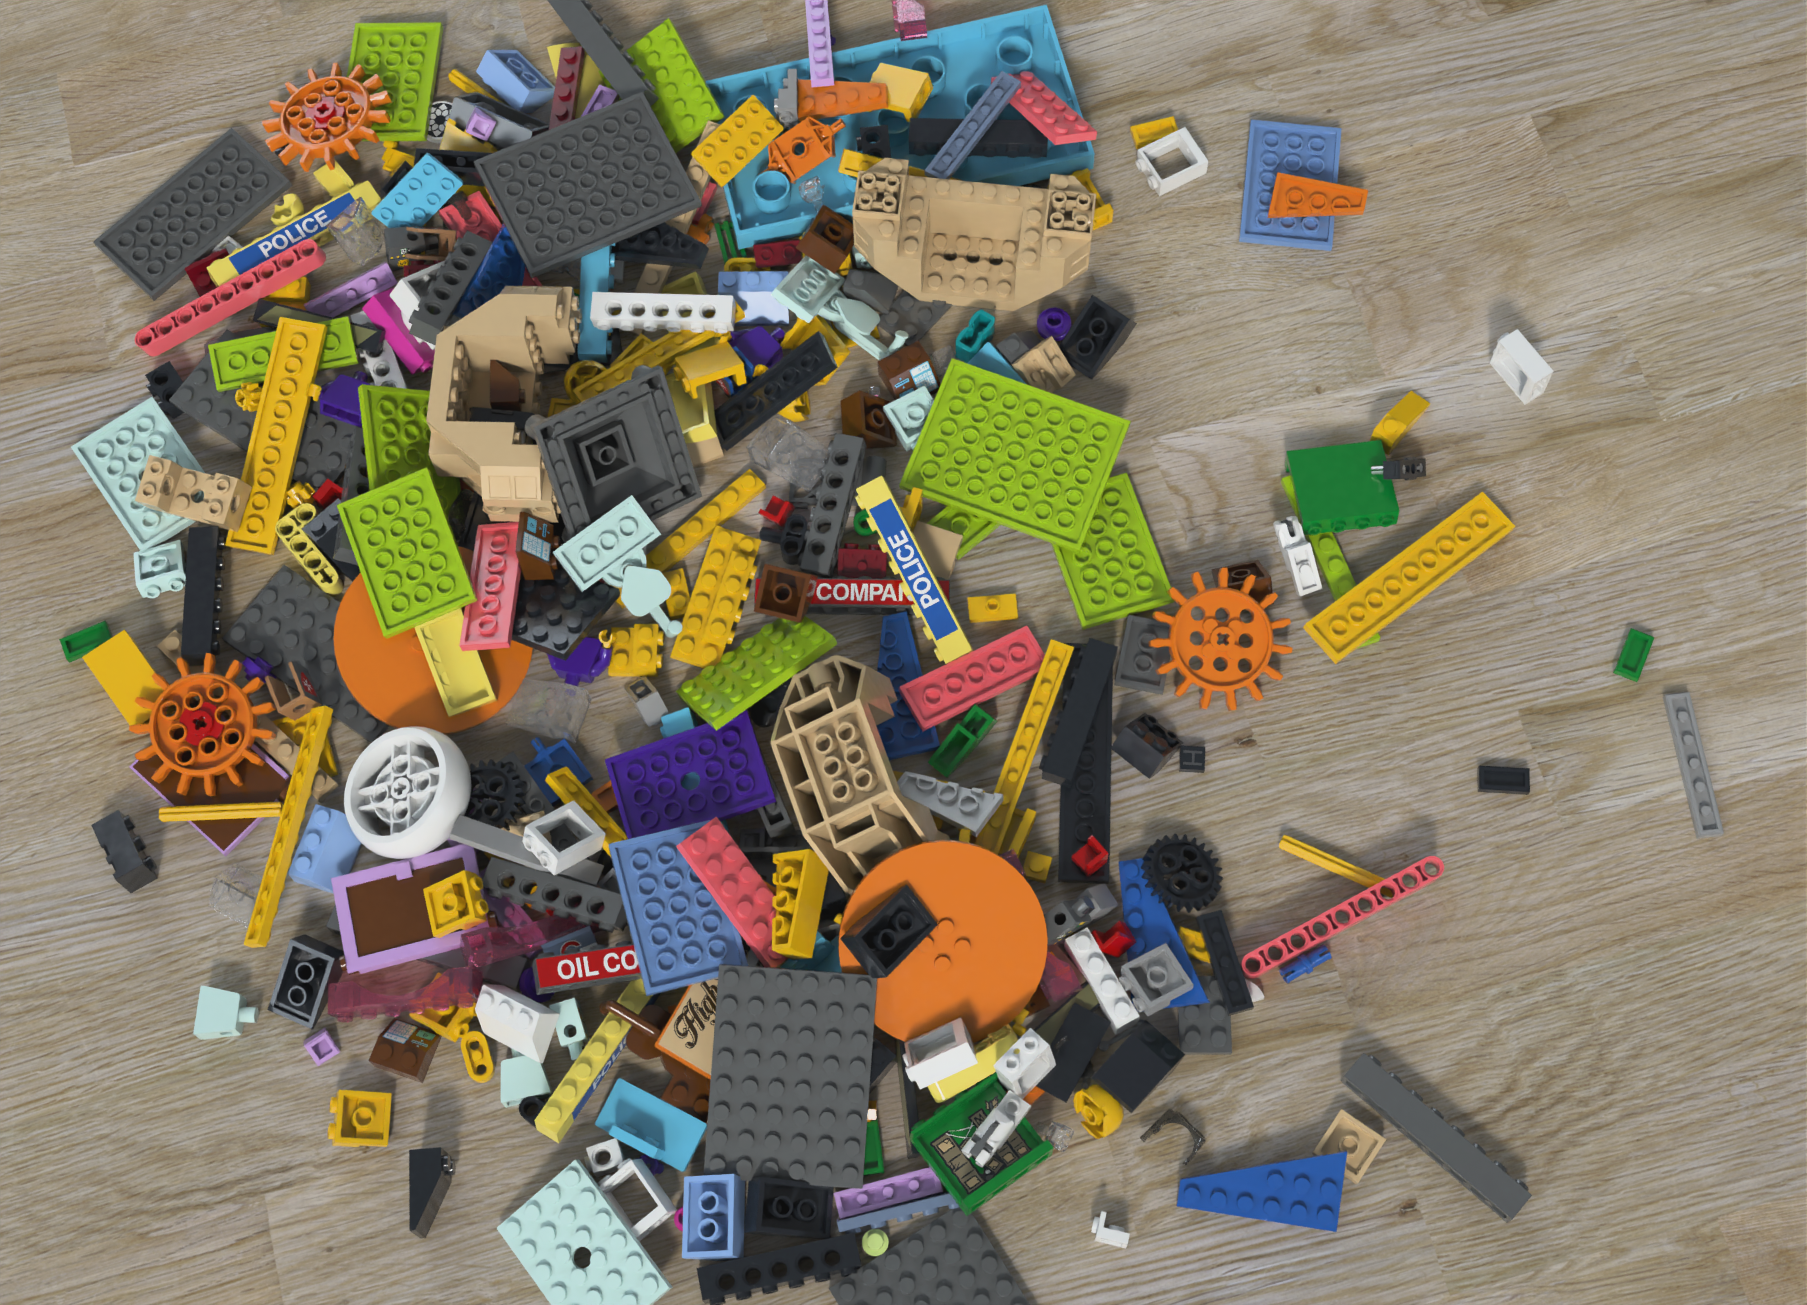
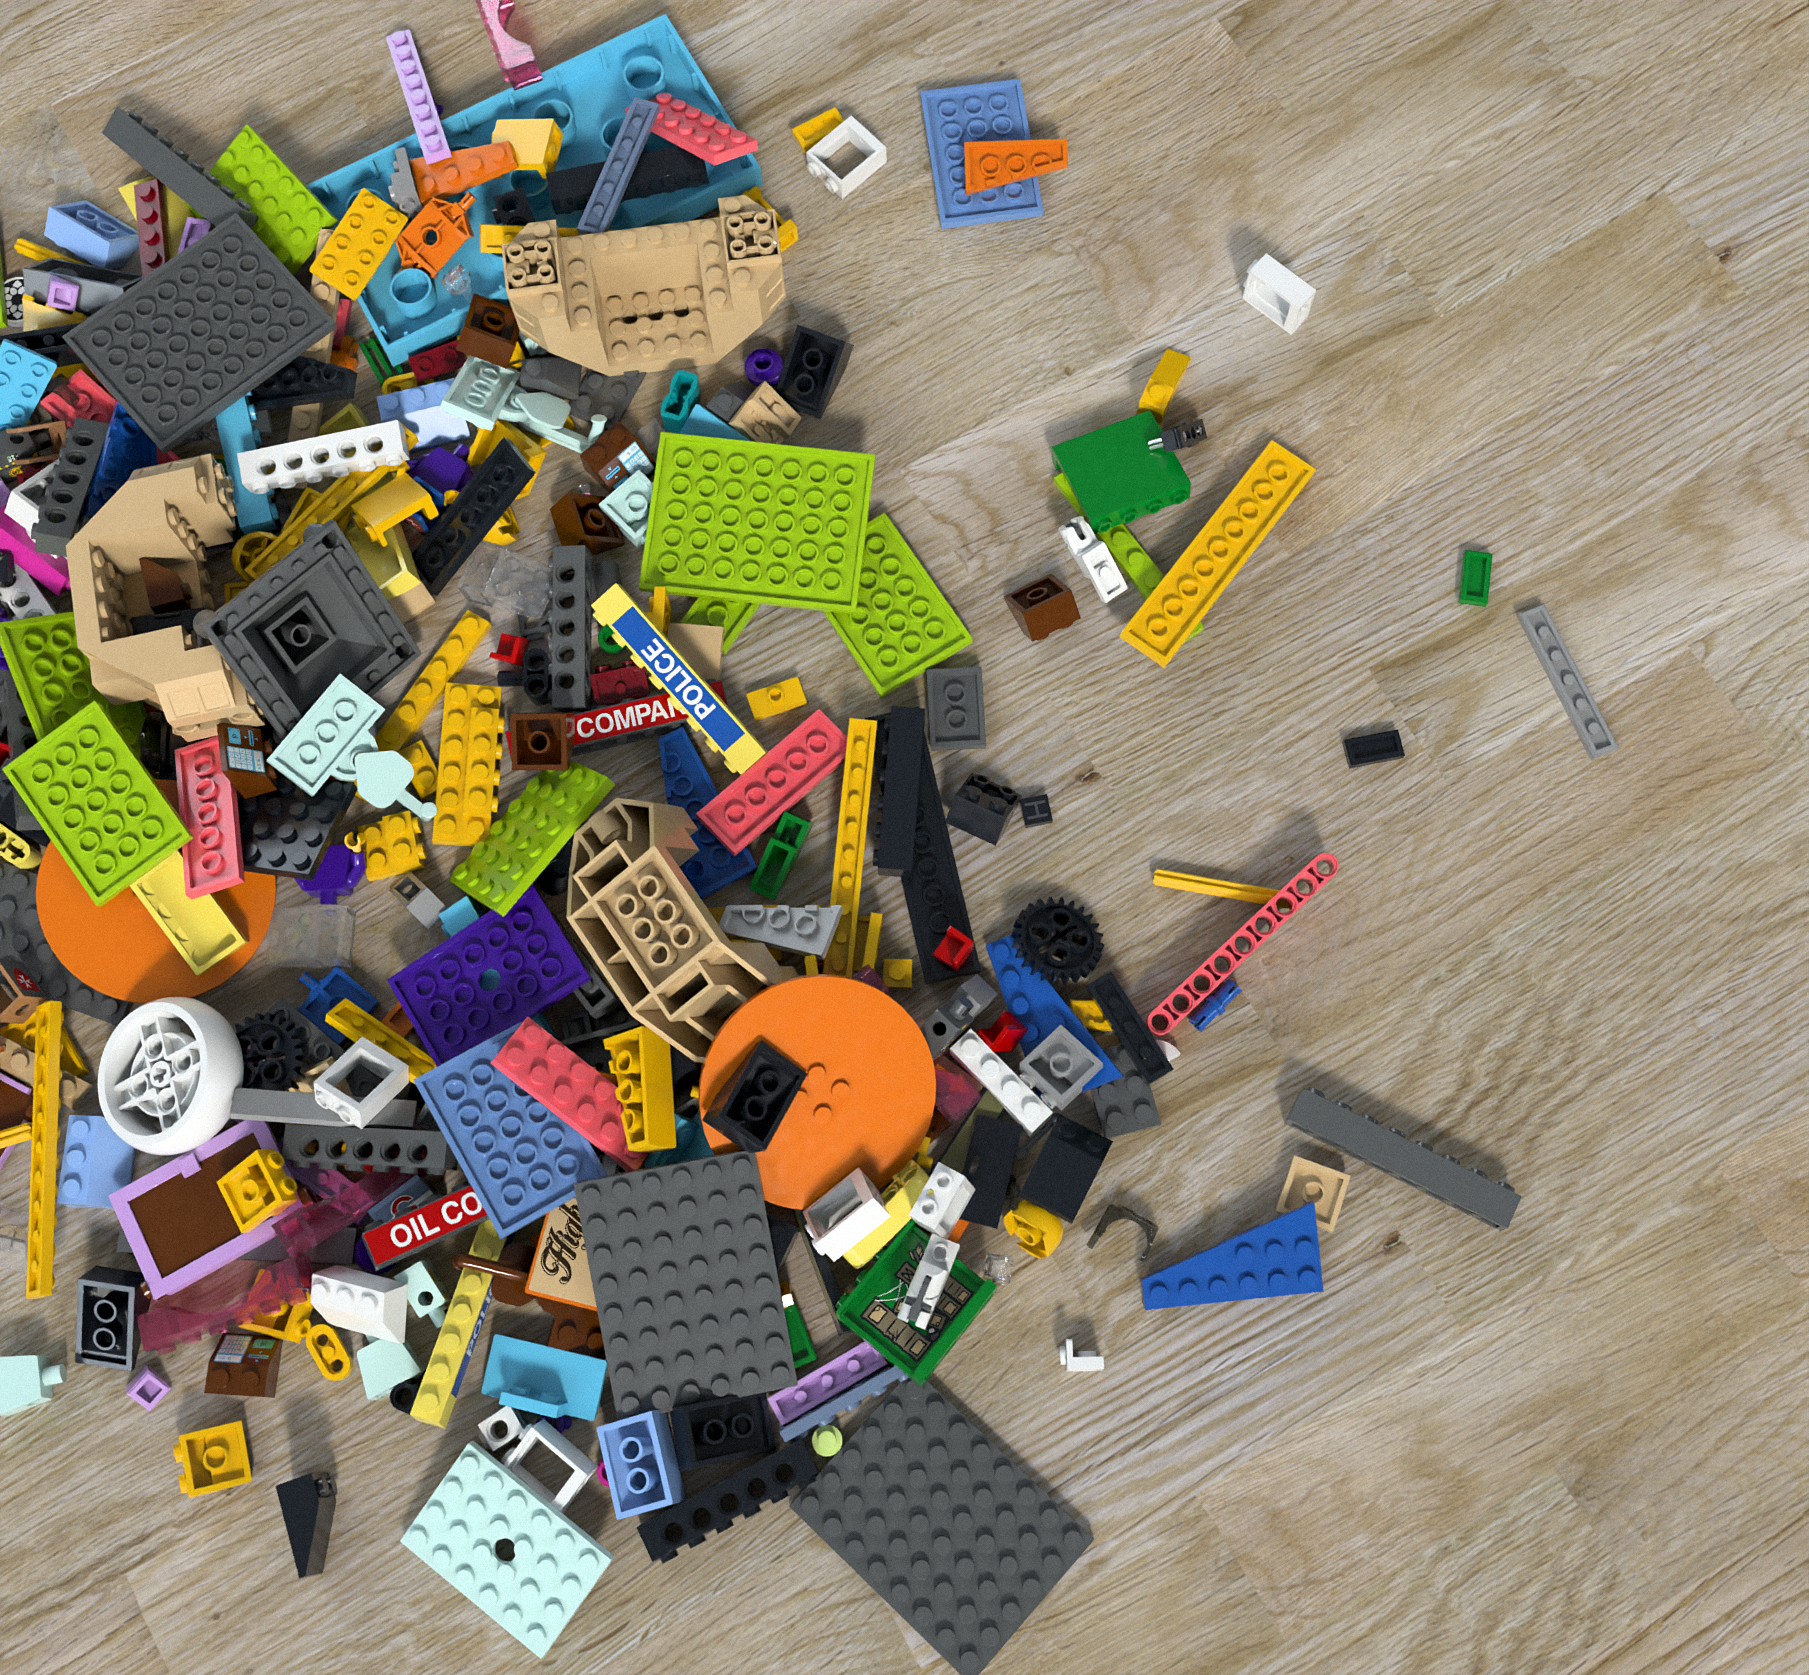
camera: 15 degrees left, 5 degrees up
(1258, 630) = (1072, 652): orange gear -> none

